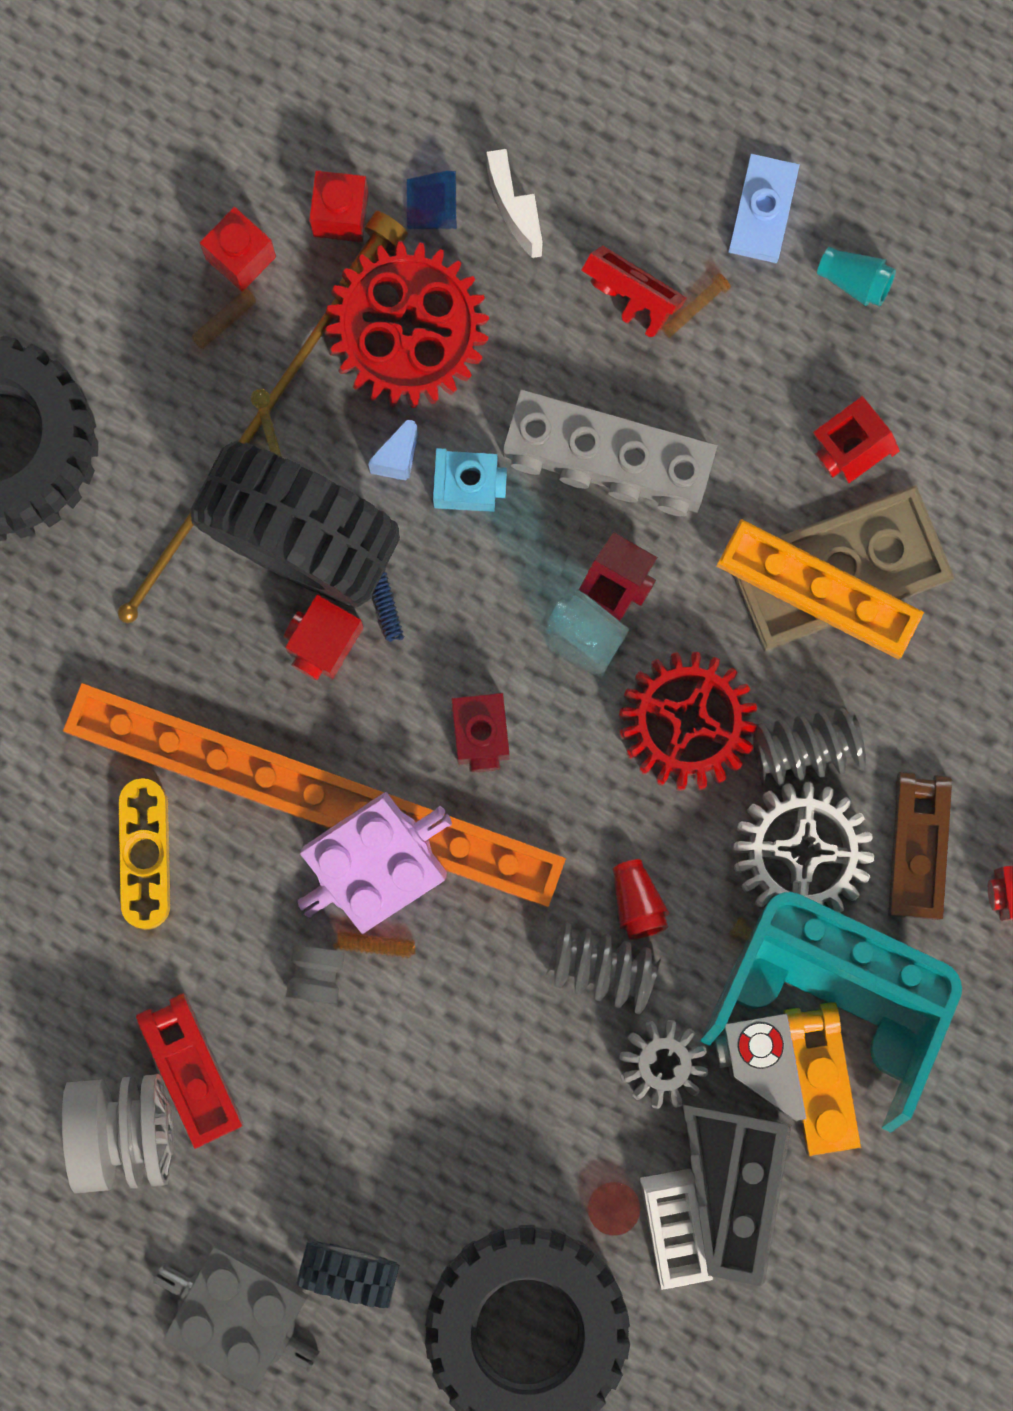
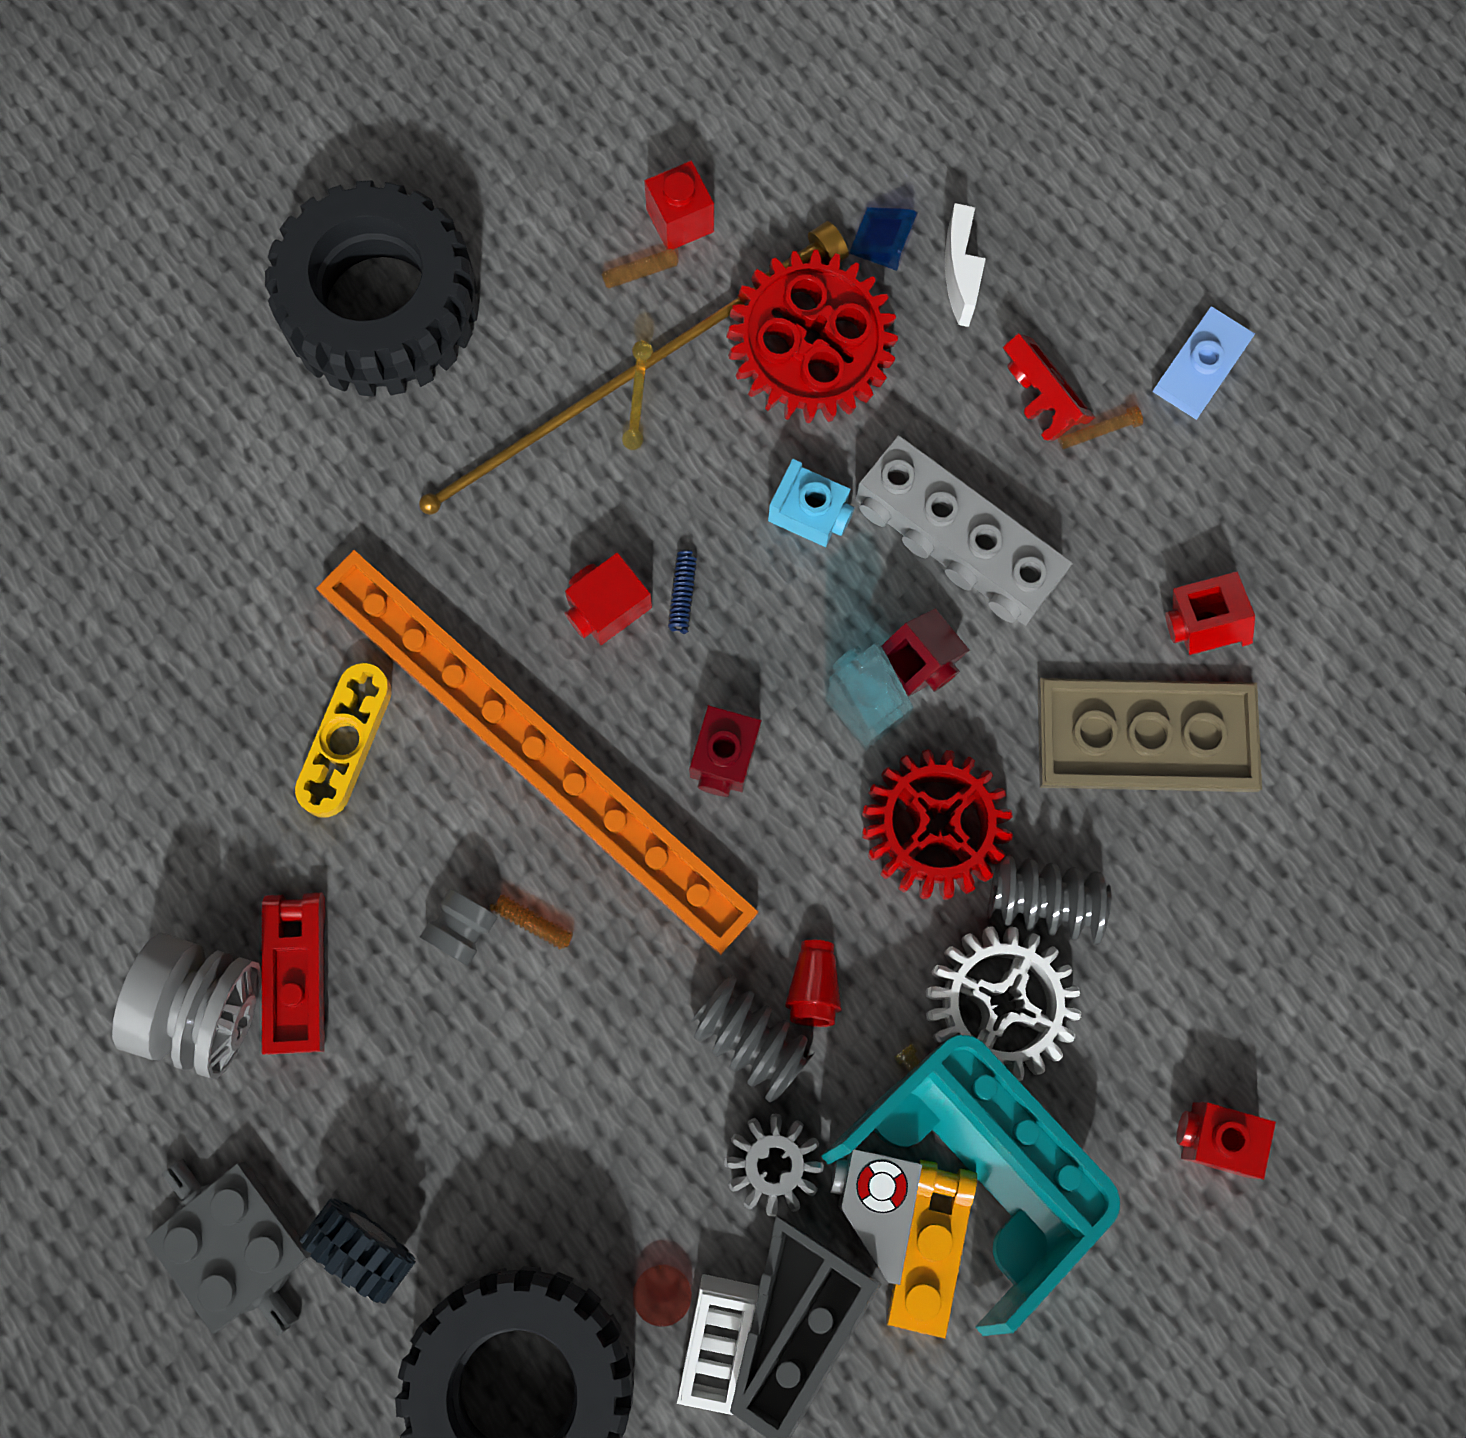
camera: 20 degrees right, 5 degrees down
(295, 523) = (623, 468): black tyre -> none
(339, 206) = (792, 203): red brick -> none
(374, 862) = (564, 838): lavender plate -> none
(397, 454) = (752, 452): light blue slope -> none
(820, 589) = (1122, 746): light orange tile -> none
(860, 276) = (1274, 459): teal cone -> none
(920, 848) = (1125, 1049): reddish brown plate -> none

